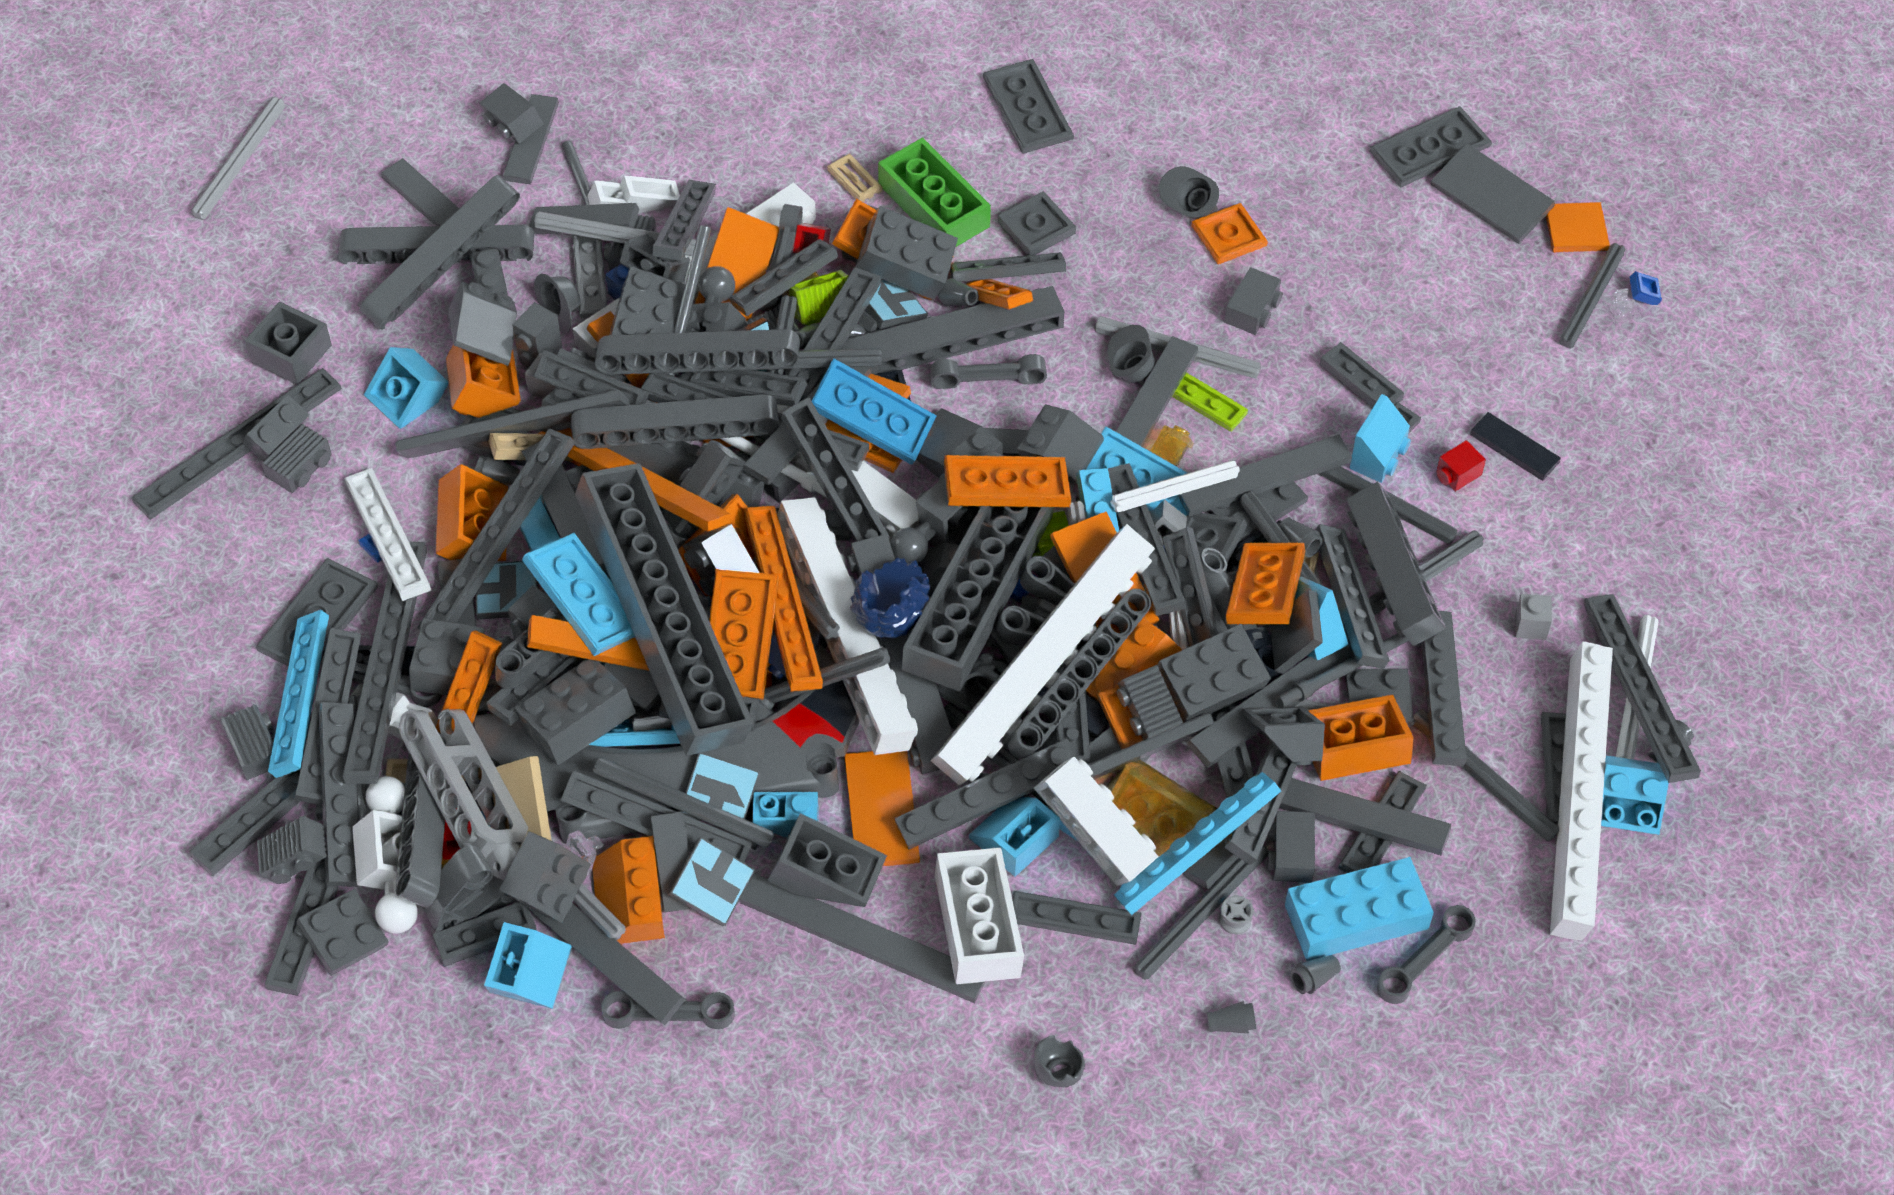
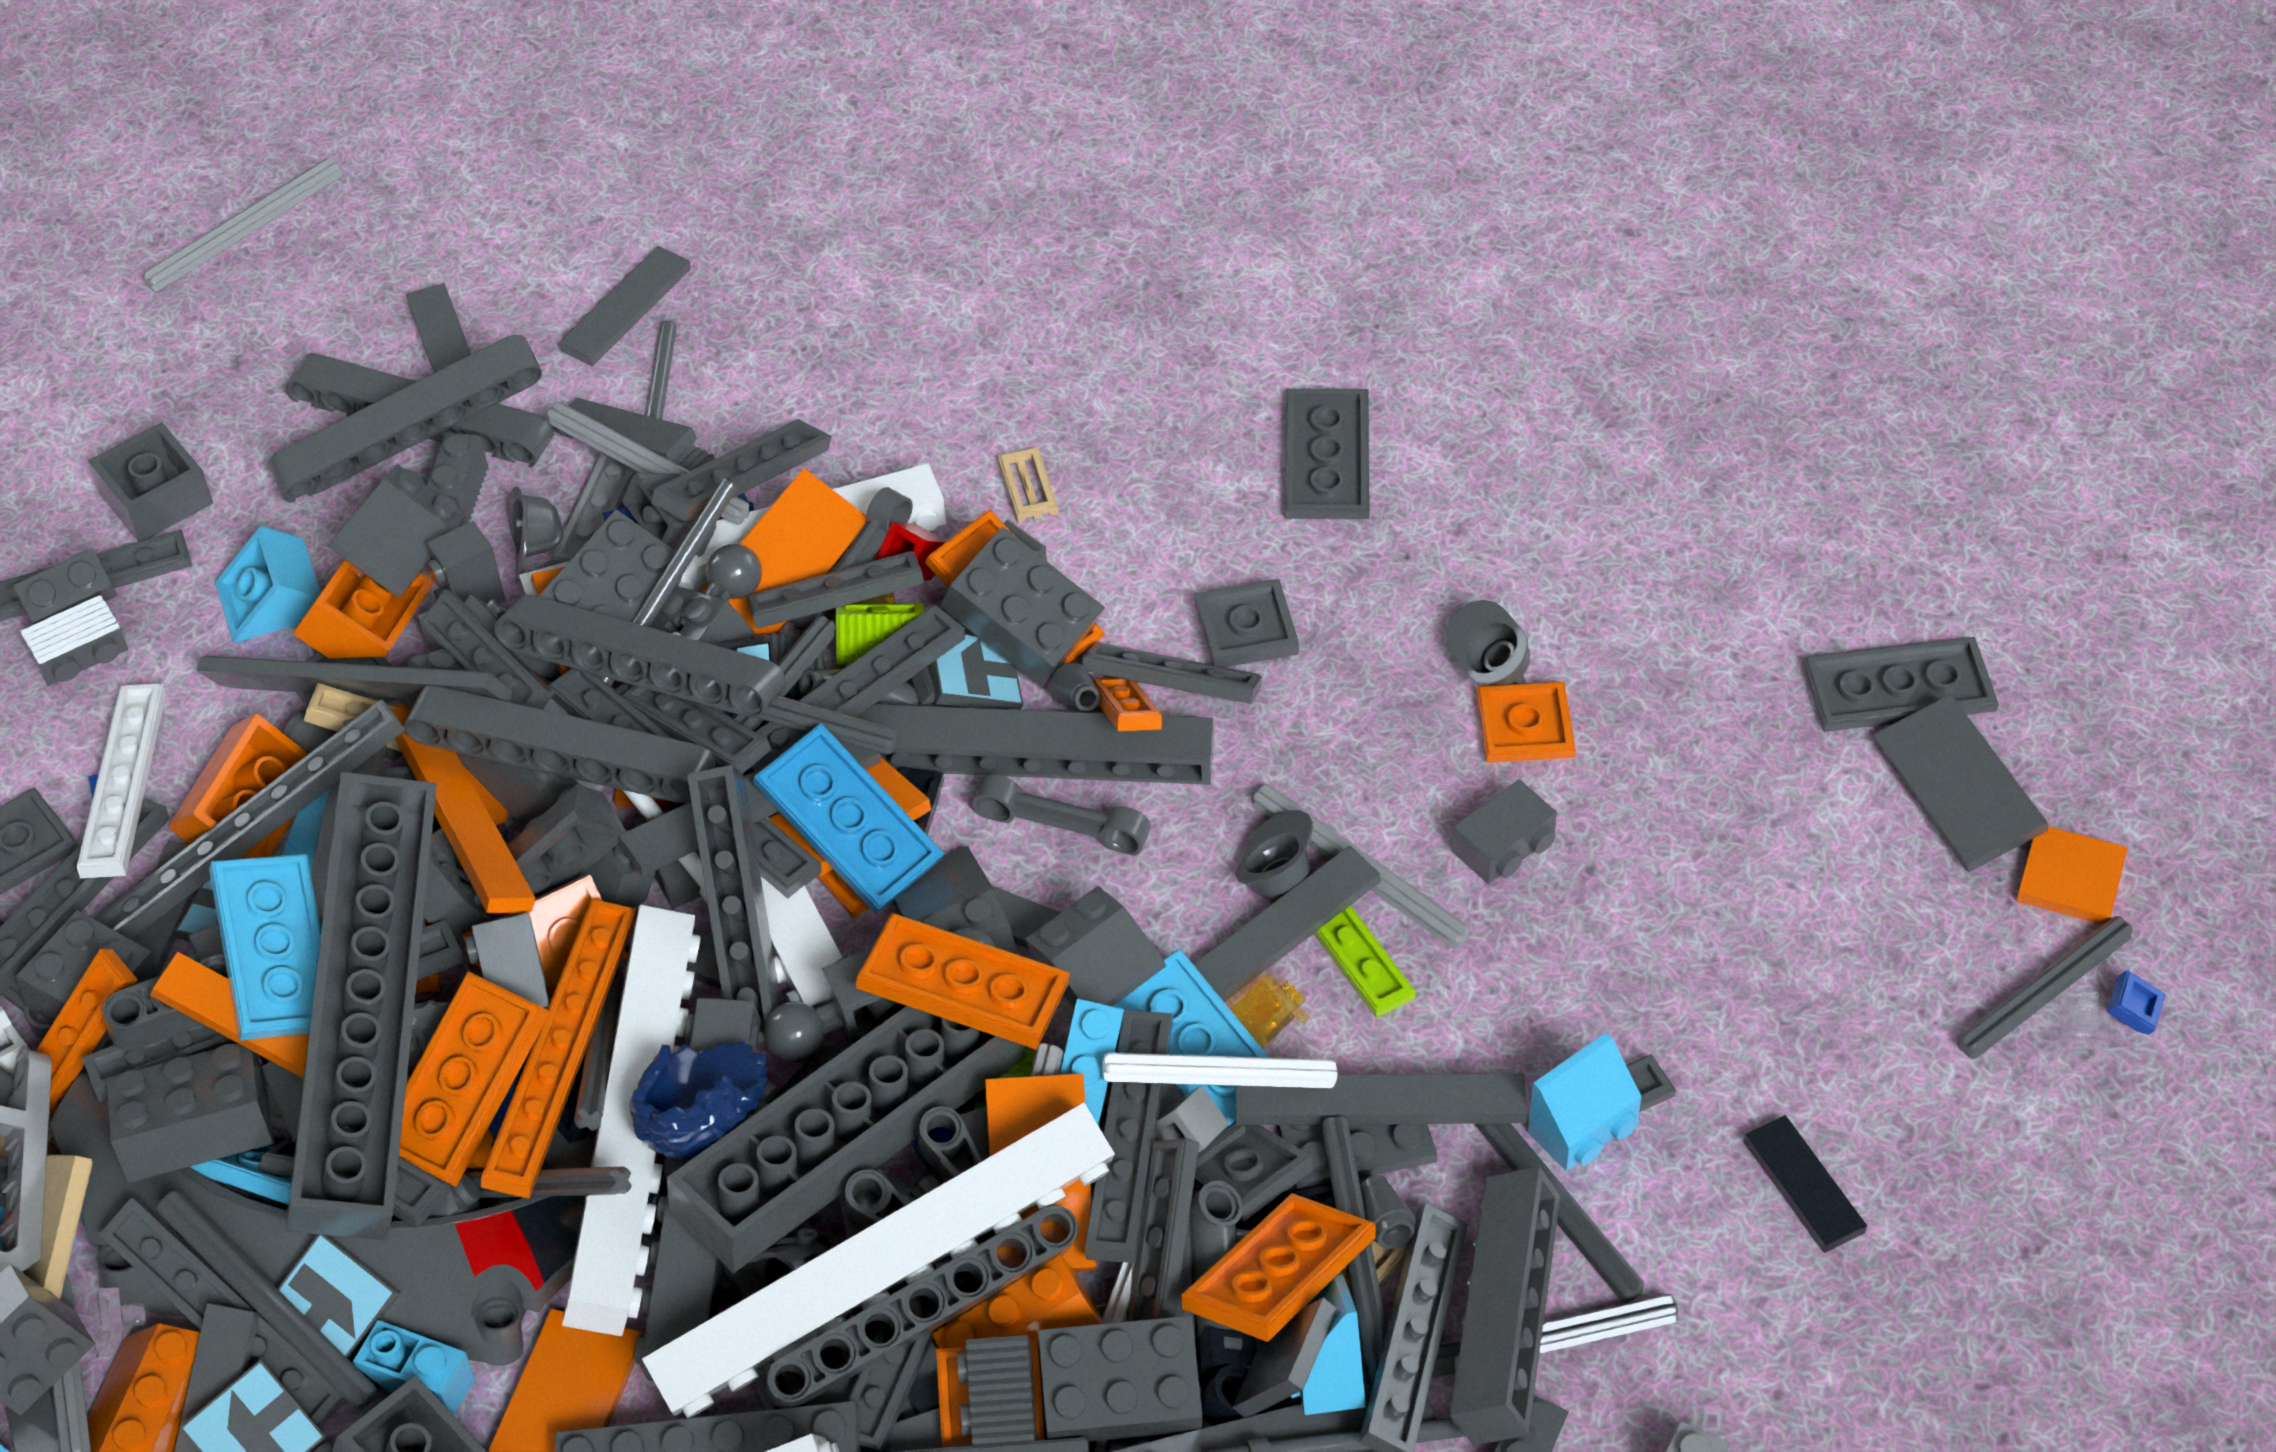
camera: 25 degrees right, 5 degrees down
(510, 114) = (608, 264): dark grey brick -> none
(647, 193) = (713, 416): white slope -> none
(933, 191) = (1118, 538): bright green brick -> none
(1359, 375) = (1613, 998): dark grey plate -> none
(1460, 466) = (1696, 1185): red brick -> none

